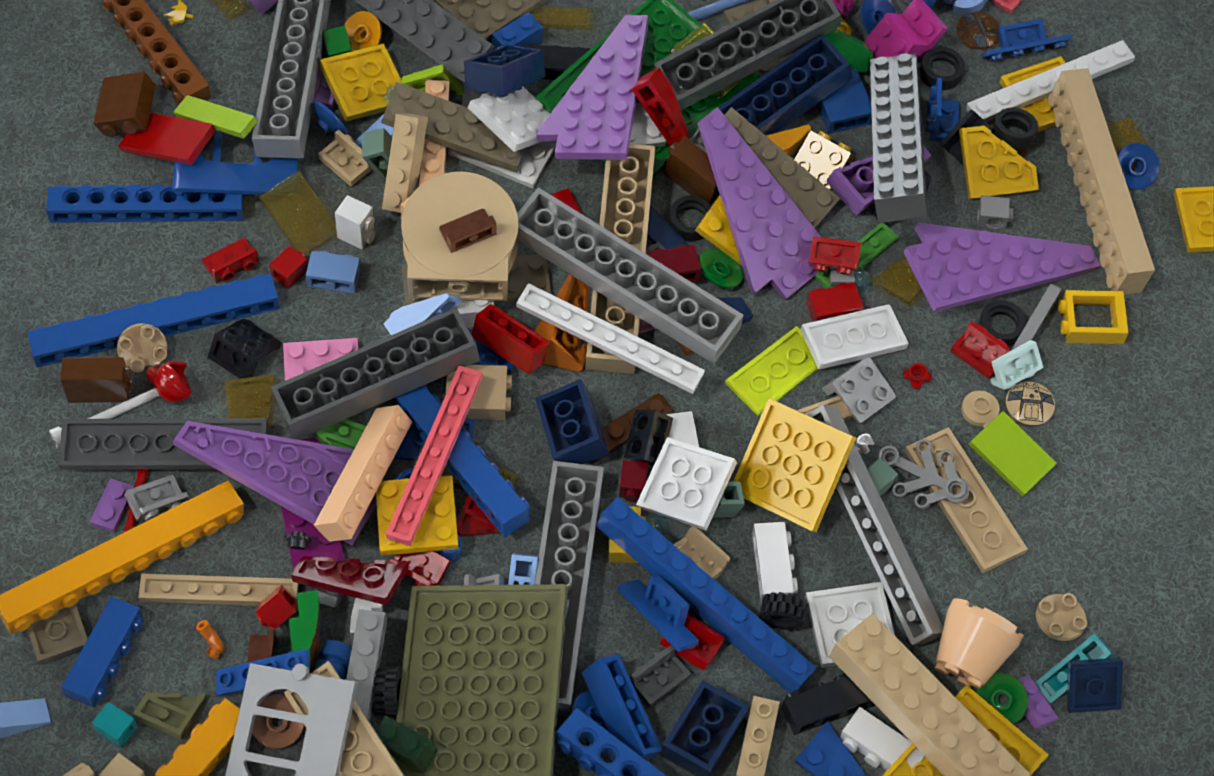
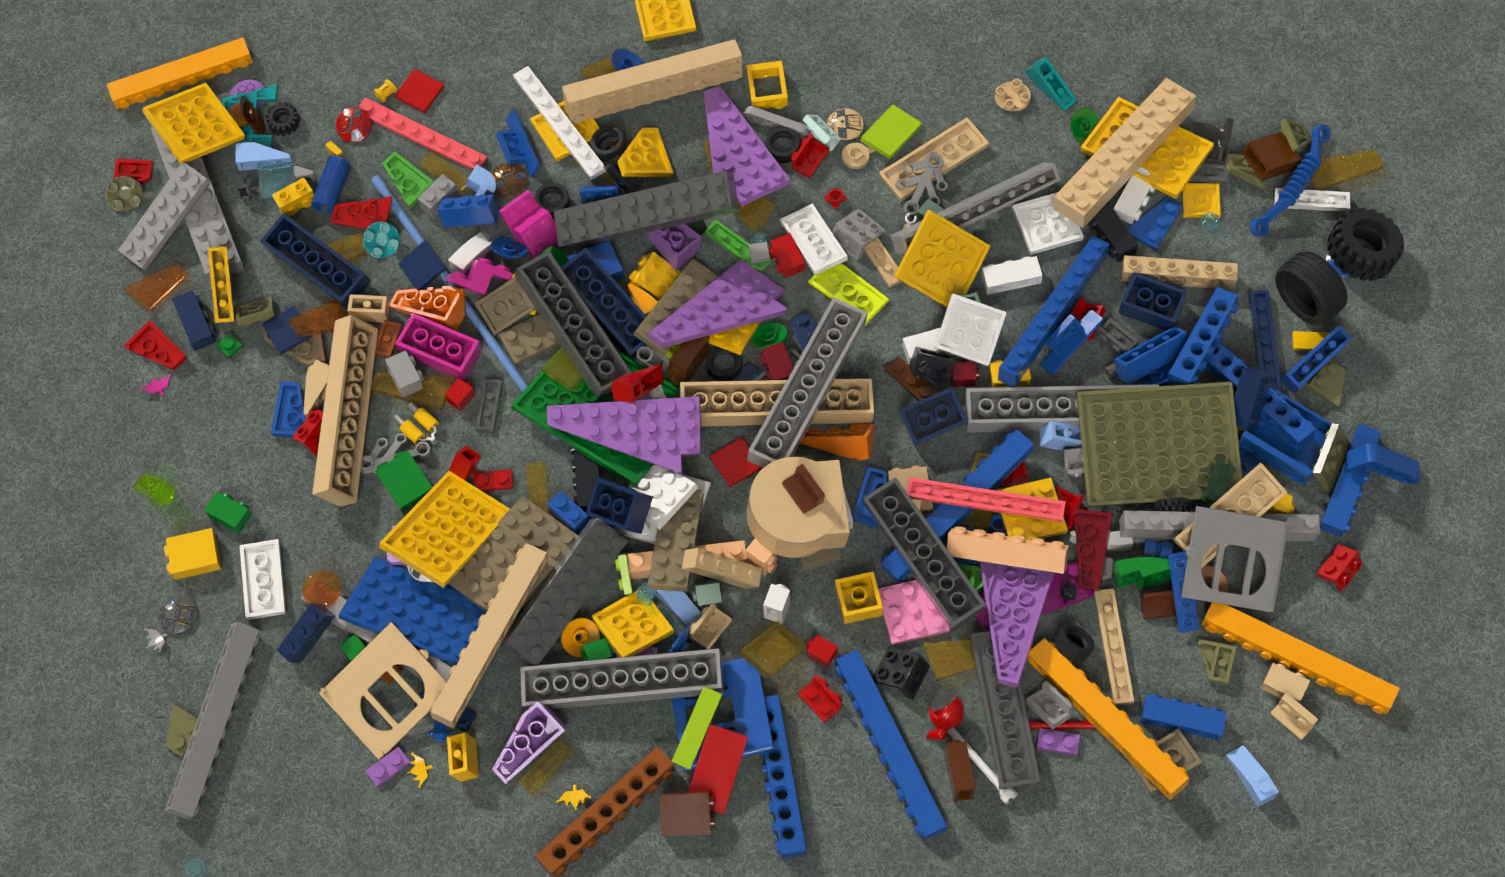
camera: 90 degrees left, 5 degrees up
(114, 725) = (1239, 694): teal panel -> none
(142, 346) = (917, 746): tan dish -> none
(212, 638) = (1158, 639): orange arm -> none
(246, 549) = (1078, 635): none -> black tyre
(276, 607) = (1124, 597): red brick -> none
(333, 271) = (820, 616): medium blue brick -> none
(345, 310) = (858, 597): none -> yellow brick
(420, 311) = (860, 543): light blue slope -> none
(510, 339) = (868, 468): red brick -> none
(610, 338) = (859, 395): white plate -> none
(703, 552) = (1016, 322): tan bracket -> none
(784, 611) = (1052, 261): black tyre -> none
(834, 254) = (751, 253): red bracket -> none
(974, 643) = (1054, 140): light nougat cone -> none
(994, 212) = (685, 155): light grey brick -> none
(1039, 711) = (1086, 102): medium lavender plate -> none
(1094, 685) = (1064, 70): dark blue tile -> none

